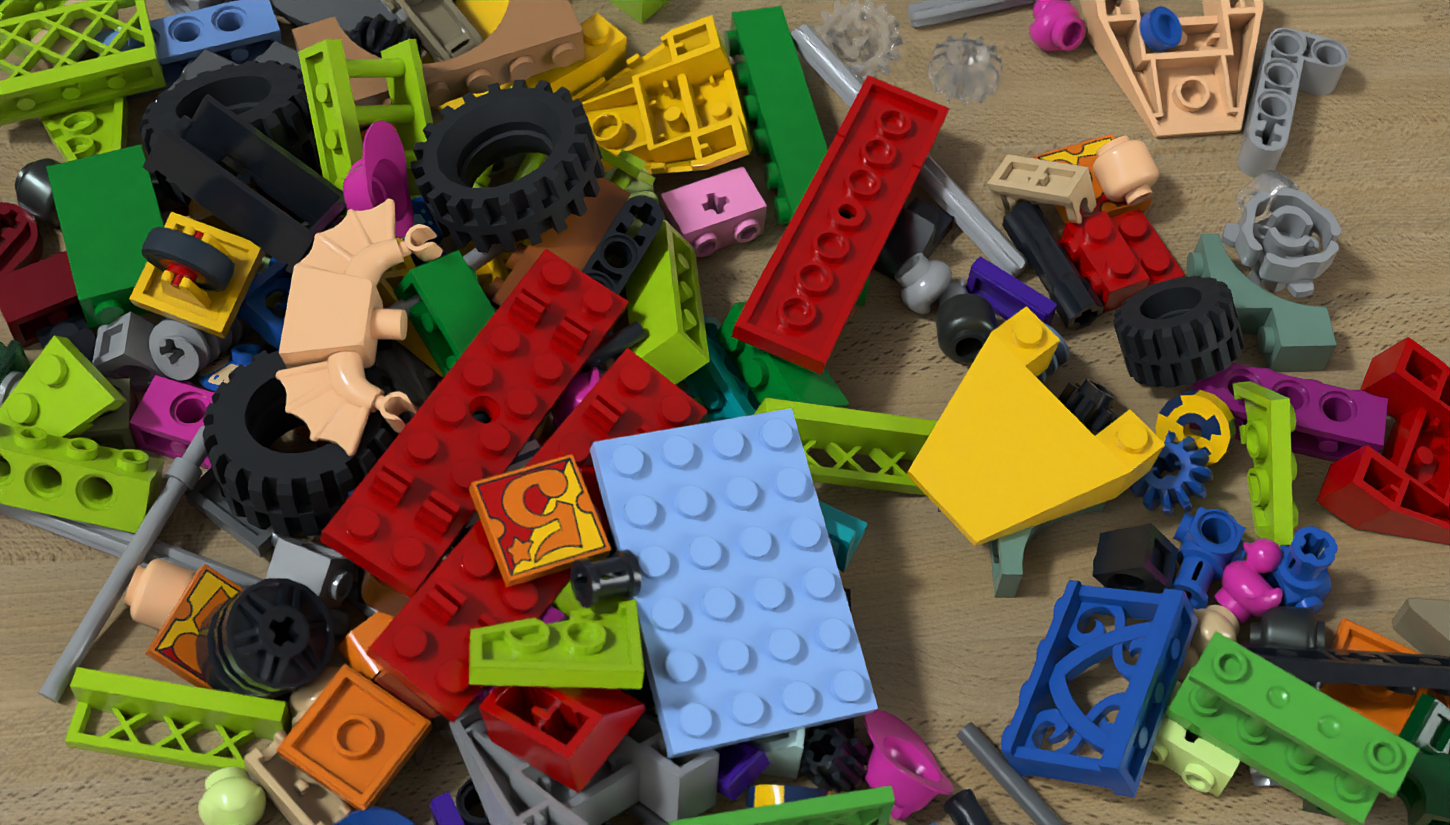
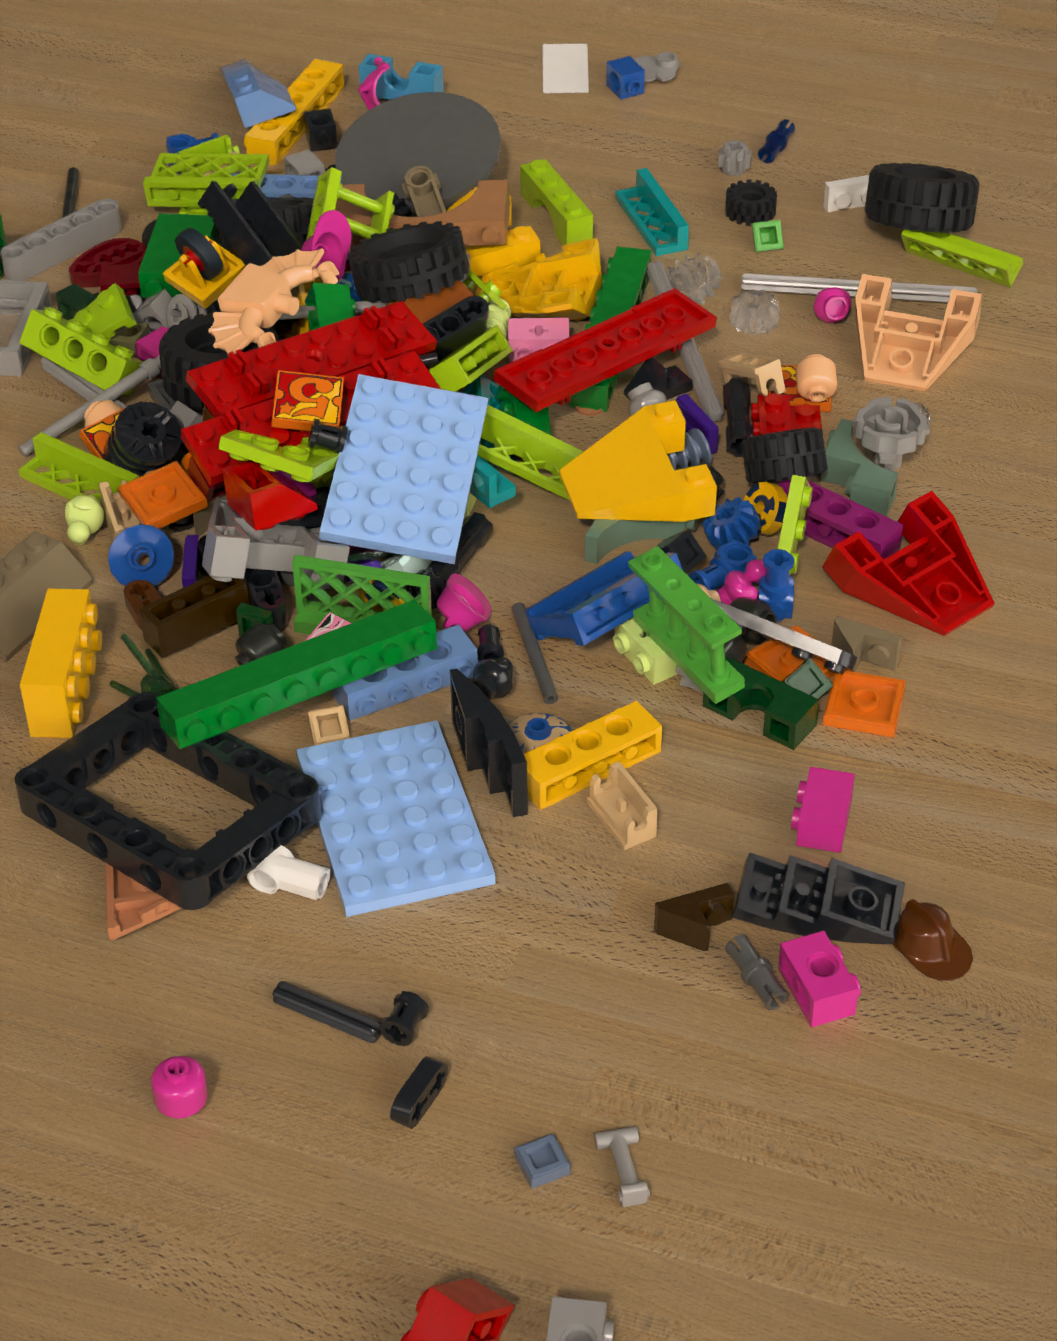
camera: 30 degrees right, 15 degrees down
(1160, 29) = (895, 315): blue tile -> none
(1288, 64) = (964, 367): light grey beam -> none

